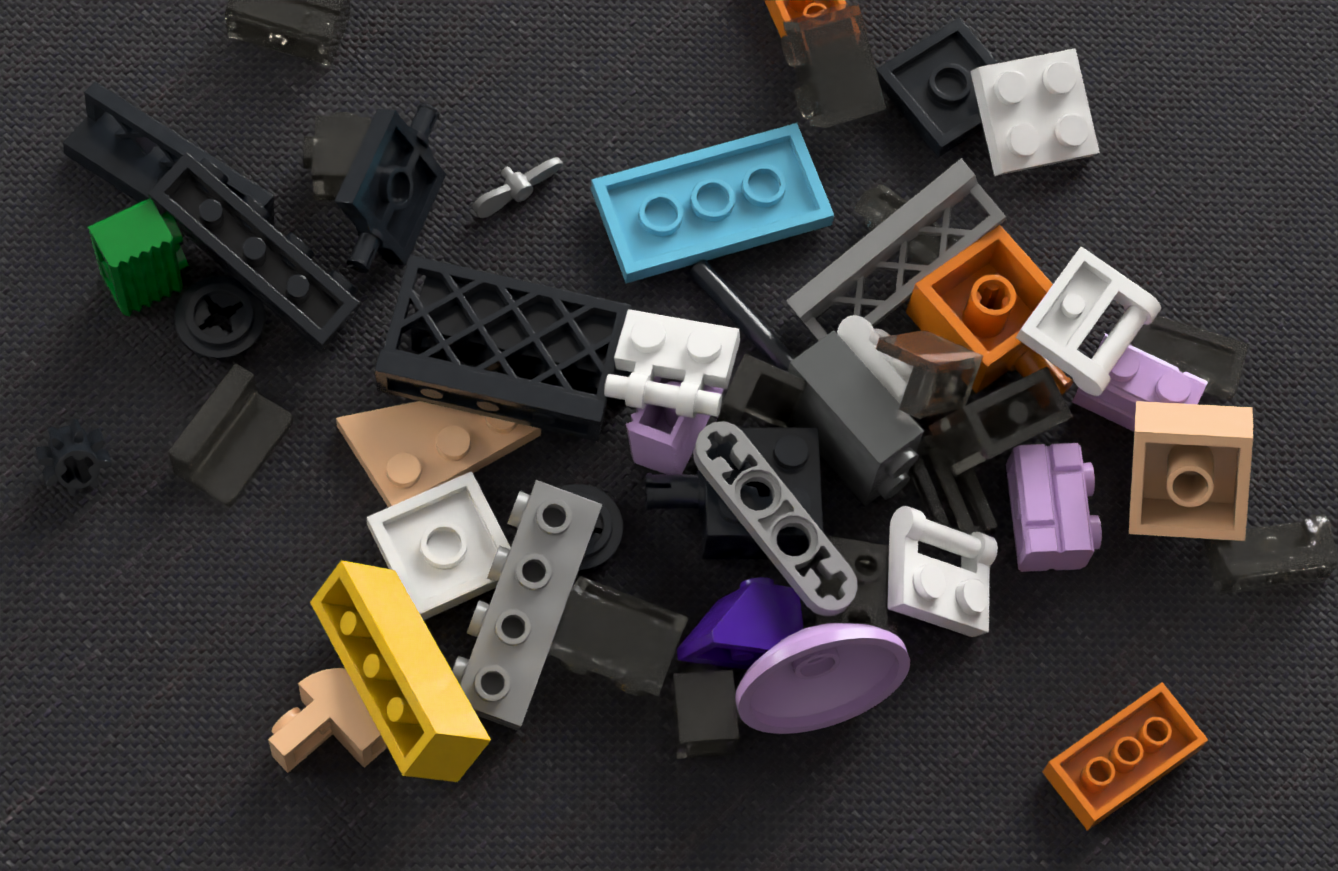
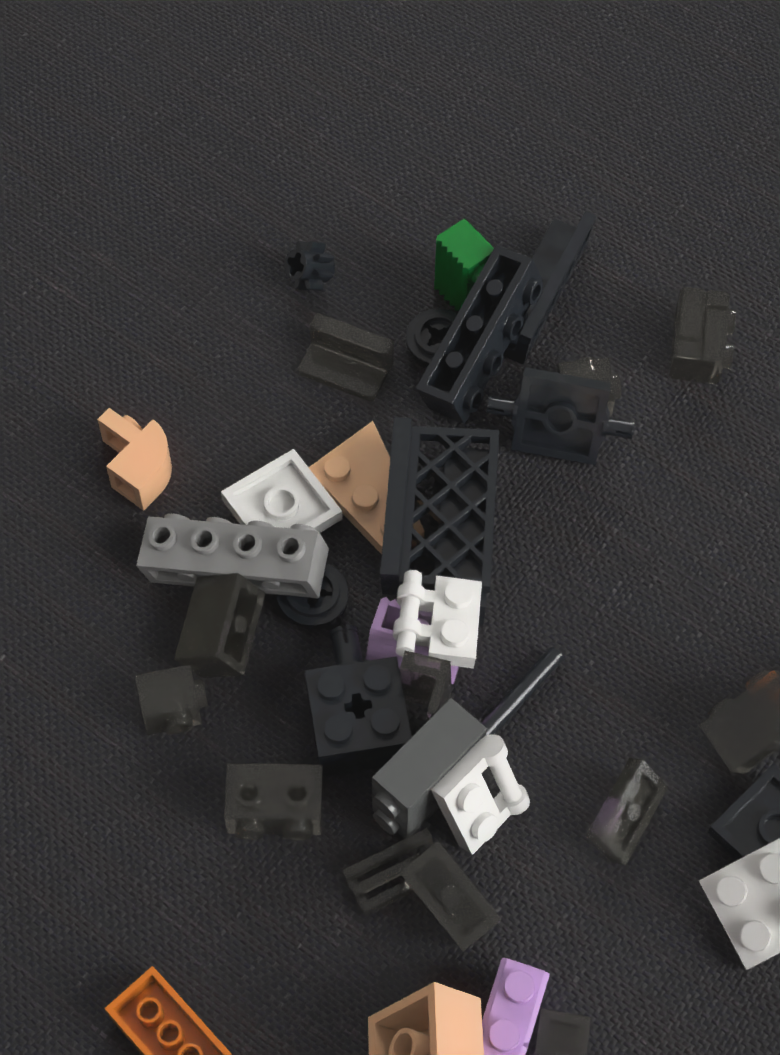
camera: 90 degrees right, 5 degrees down
(399, 672) = (161, 474): yellow brick -> none
(515, 187) = (595, 514): light grey piece -> none
(711, 202) = (615, 655): medium azure plate -> none
(744, 625) = (238, 716): dark purple slope -> none
(782, 513) = (311, 704): light grey beam -> none
(821, 678) = (195, 763): lavender dish -> none
(887, 240) = (598, 778): light grey fence -> none
(934, 589) = (292, 861): white plate -> none
(940, 372) = (470, 813): clear smoke panel -> none
(983, 303) = (552, 907): orange brick -> none
(1052, 507) = (387, 953): lavender brick -> none
(1074, 308) = (553, 929): white plate -> none

